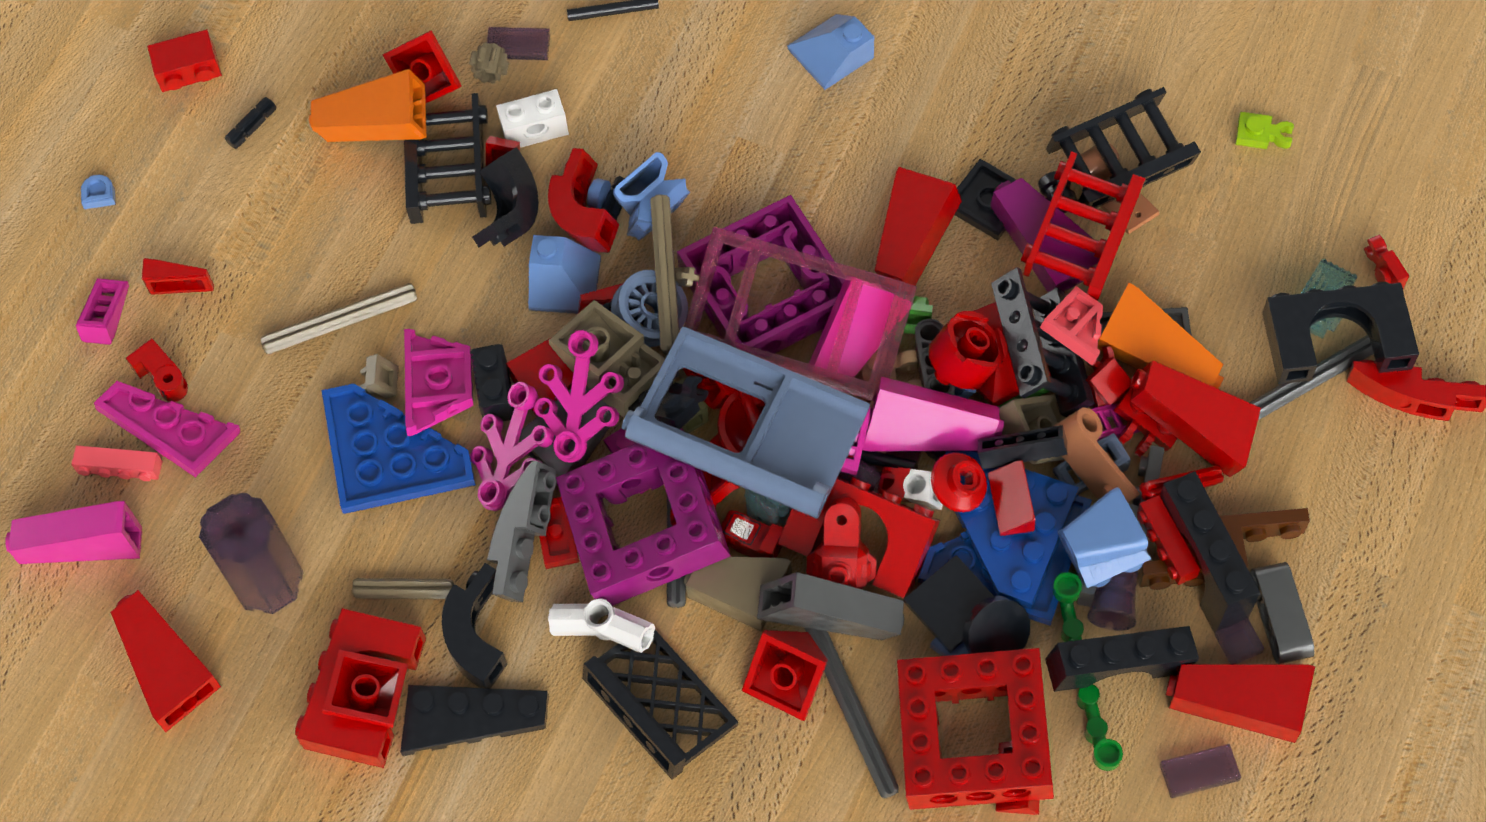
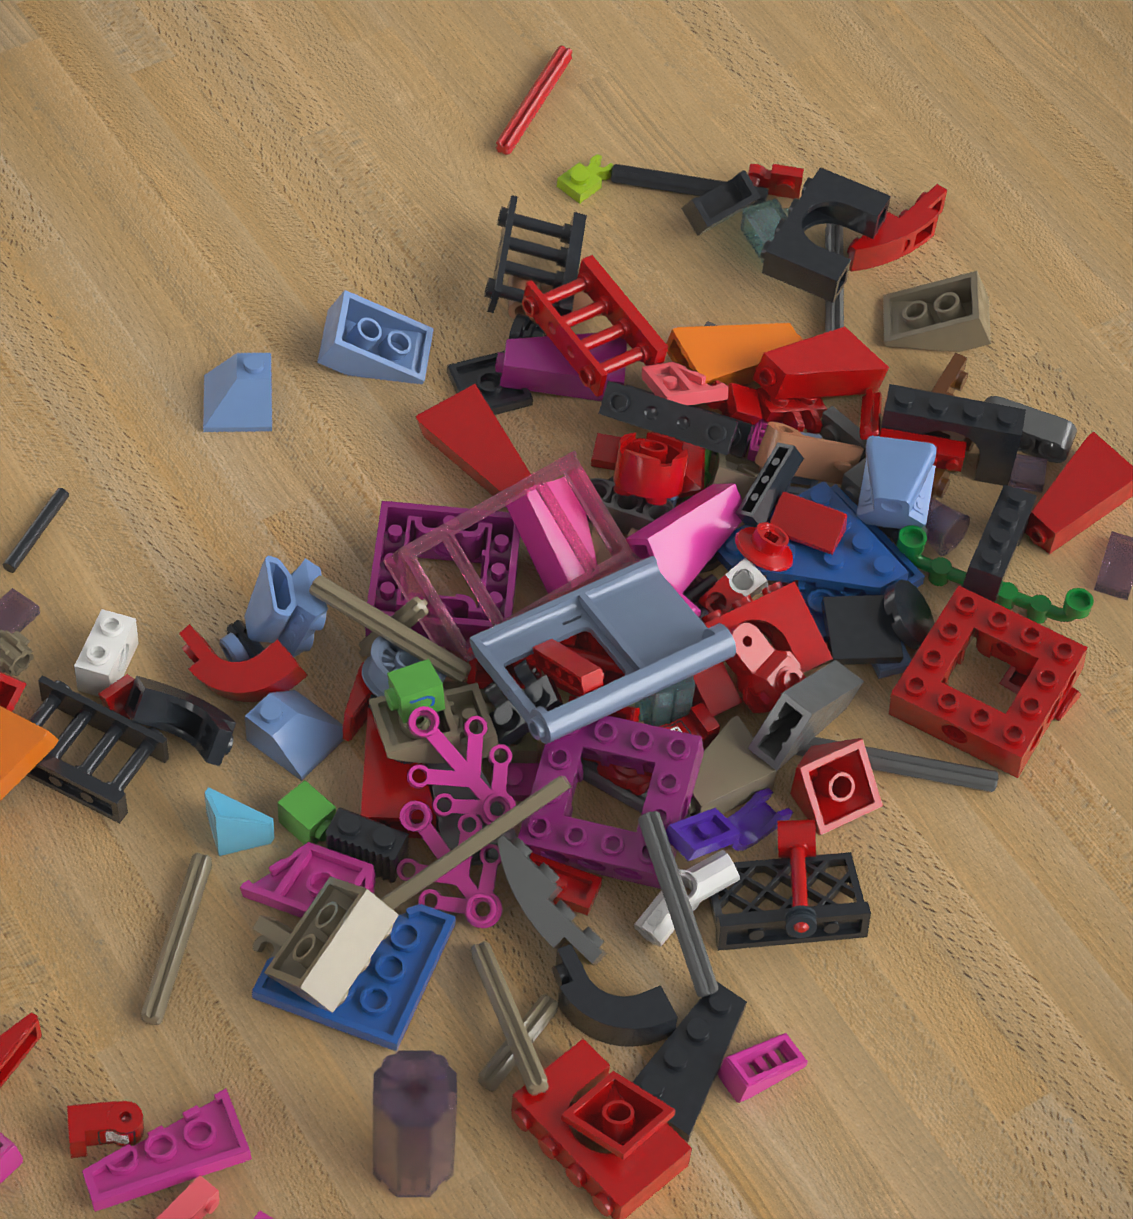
camera: 65 degrees left, 10 degrees down
(374, 413) = (332, 943): none -> slope
(407, 567) = (509, 1018): none -> dark tan axle
(446, 286) = (236, 824): none -> medium azure slope
(493, 326) = (306, 813): none -> bright green brick
(493, 781) = (741, 1079): none -> dark pink slope
(519, 448) = (477, 842): none -> dark tan tile
(571, 619) = (678, 904): none -> dark grey axle
(611, 322) = (413, 688): none -> bright green brick
(679, 619) = (713, 831): none -> dark purple piece
(705, 408) = (568, 667): none -> red piece
(710, 673) = (796, 842): none -> red piece
(957, 98) = (374, 341): none -> medium blue slope
(1312, 44) = (534, 100): none -> axle
(1313, 239) = (721, 203): none -> black panel
(1325, 208) = (670, 181): none -> black axle
(1349, 475) = (939, 315): none -> dark tan slope

